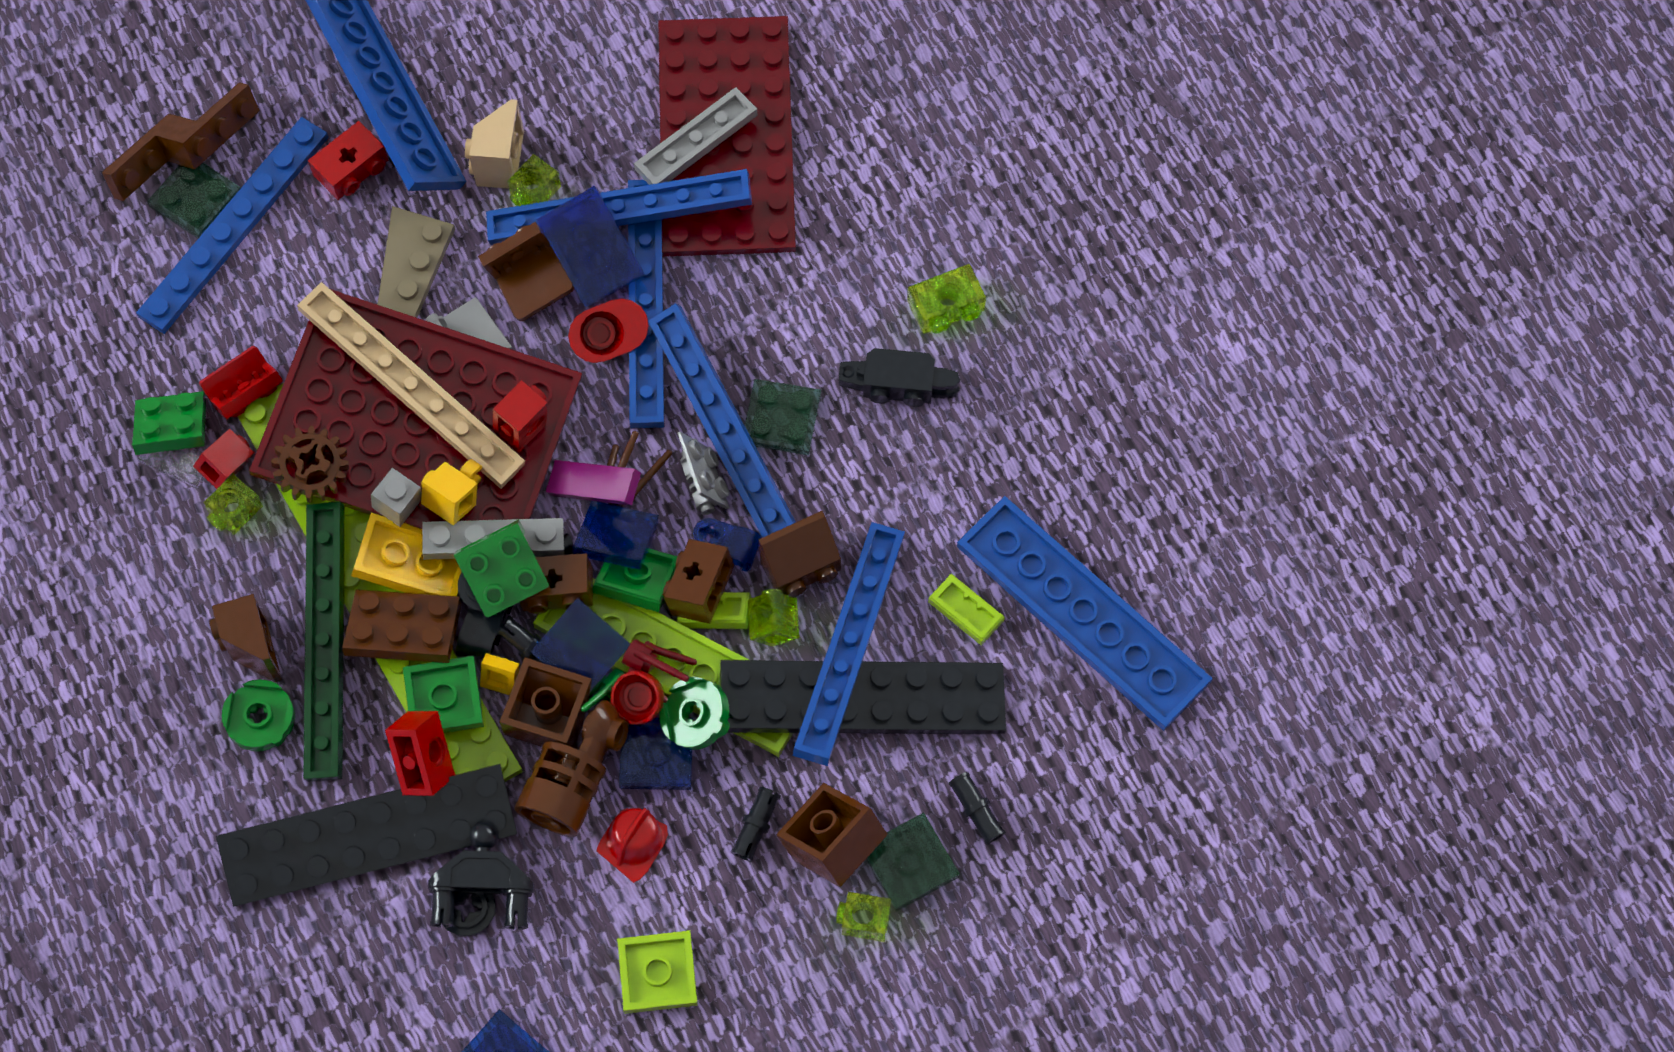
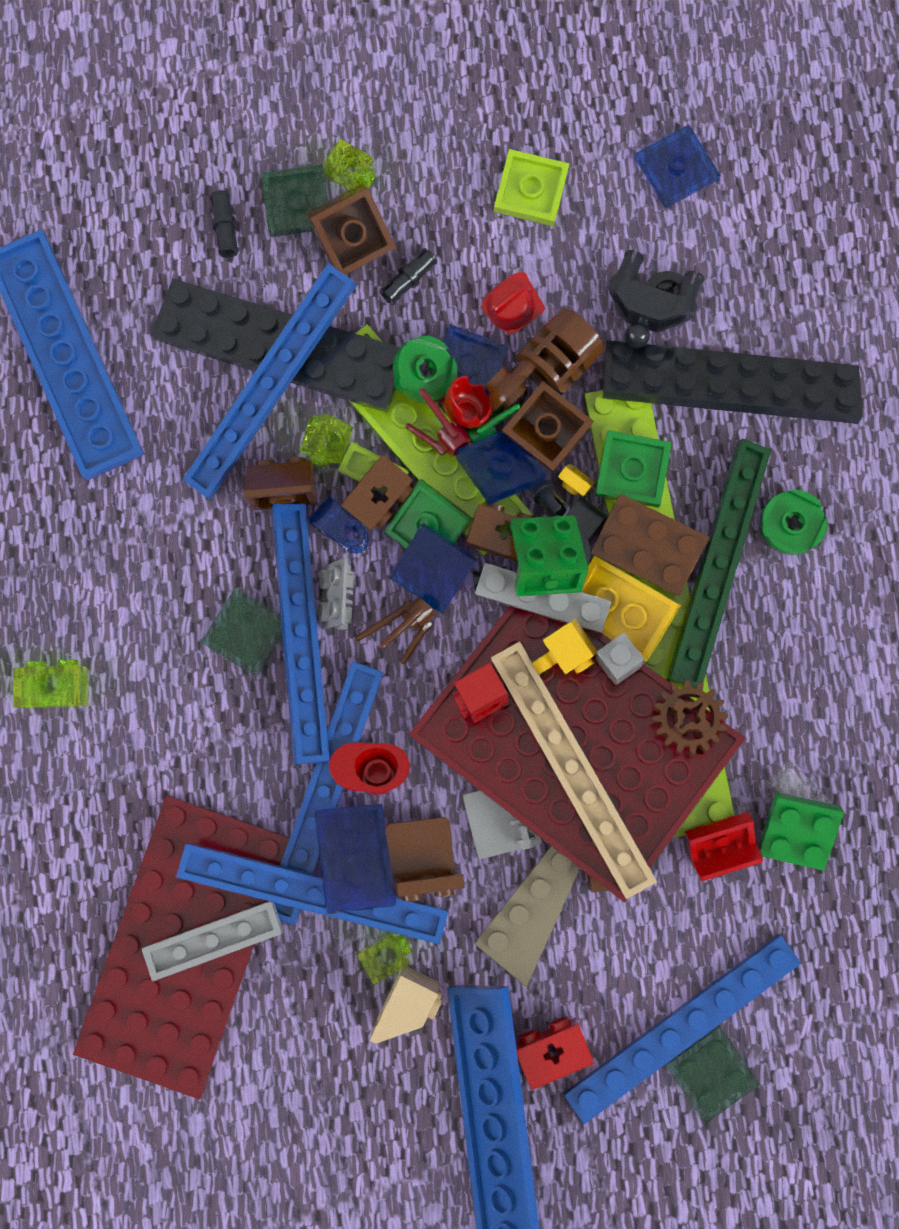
camera: 160 degrees left, 15 degrees up
(180, 141) = (711, 1136): reddish brown bracket -> none
(224, 458) = (759, 772): red brick -> none
(230, 492) = (750, 728): clear neon green brick -> none
(245, 634) = (788, 584): reddish brown slope -> none
(420, 753) = (671, 414): red brick -> none
(593, 482) = (435, 618): magenta tile -> none
(899, 377) = (126, 627): black hinge -> none
(966, 609) = (160, 393): lime plate -> none

